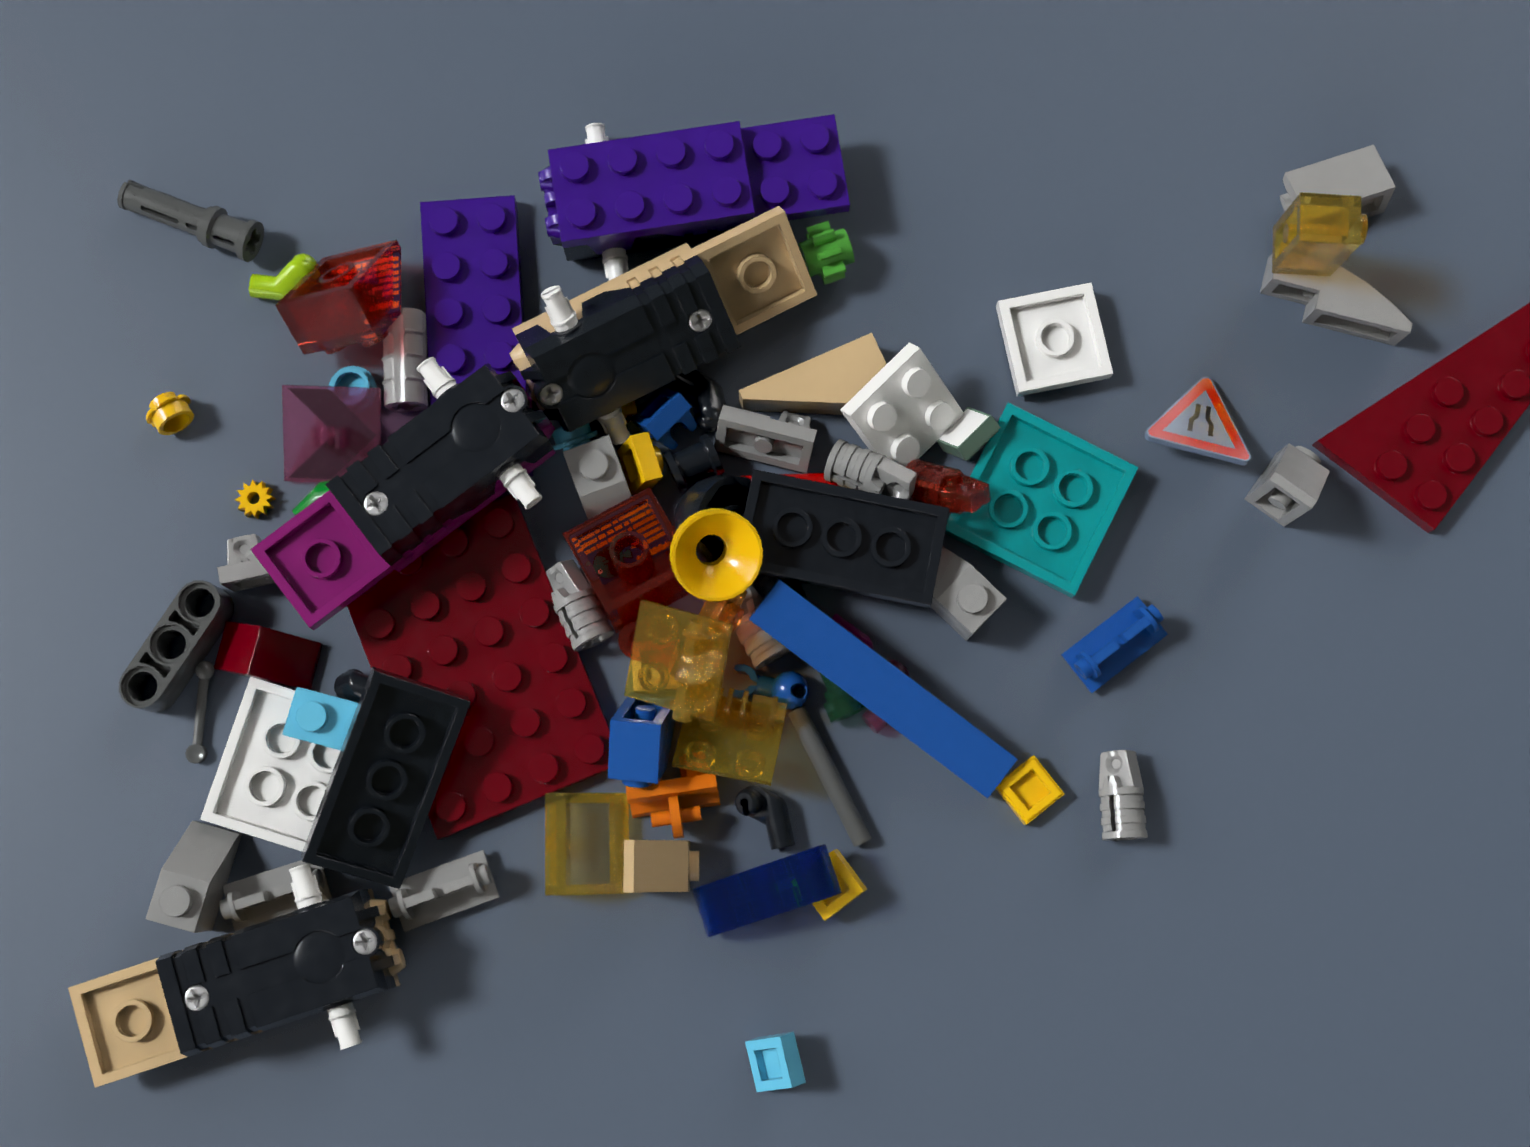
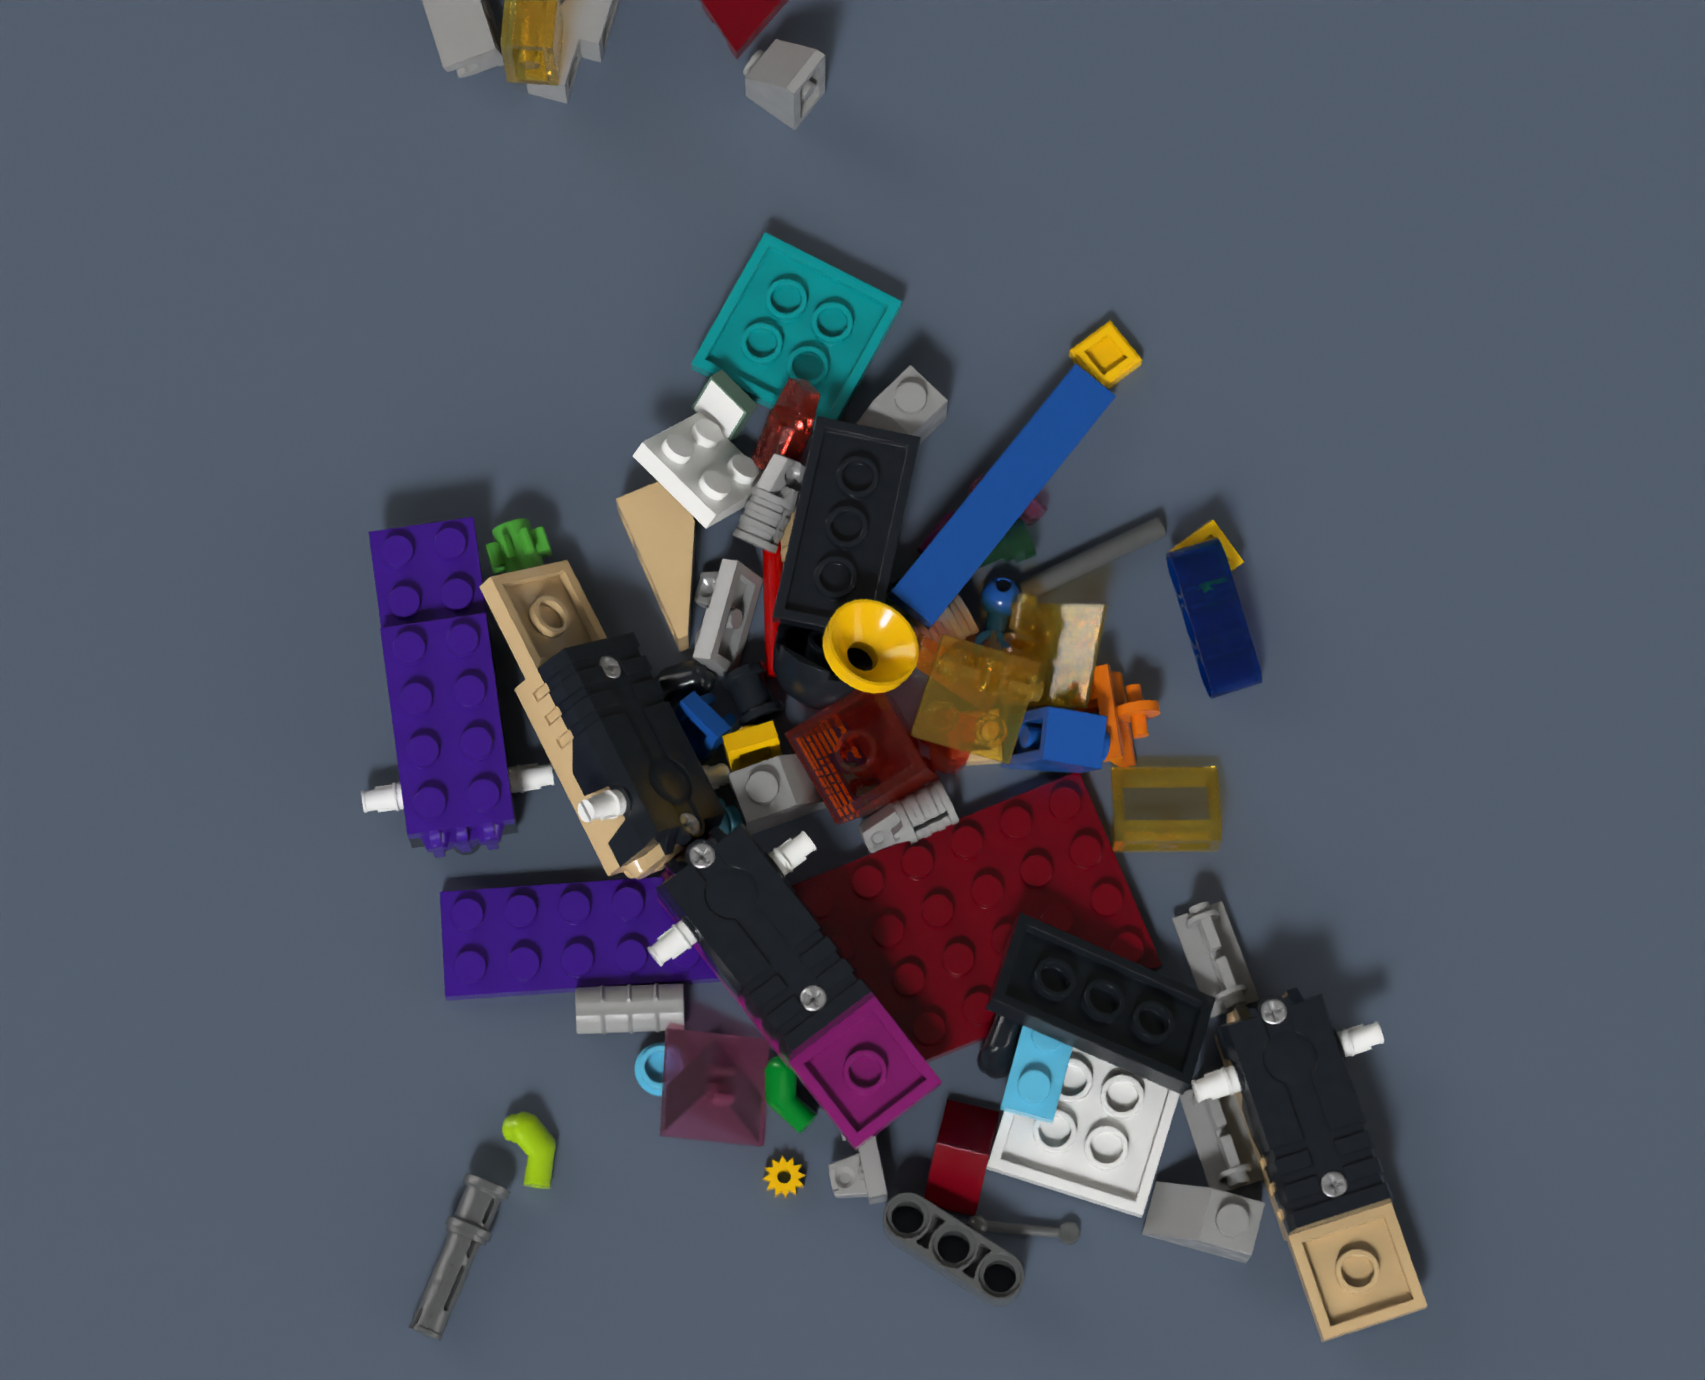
camera: 90 degrees left, 5 degrees down
(170, 413) = (685, 1271): yellow plate -> none
(345, 299) = (562, 1065): clear red slope -> none
(659, 866) = (1189, 728): tan slope -> none
(769, 810) = (1128, 620): black arm -> none
(775, 1062) = (1388, 614): medium azure plate -> none
(1054, 339) = (620, 315): white plate -> none
(1115, 643) = (951, 264): blue hinge -> none
(1121, 796) = (1112, 263): light grey hinge -> none
(1200, 426) = (720, 167): piece -> none

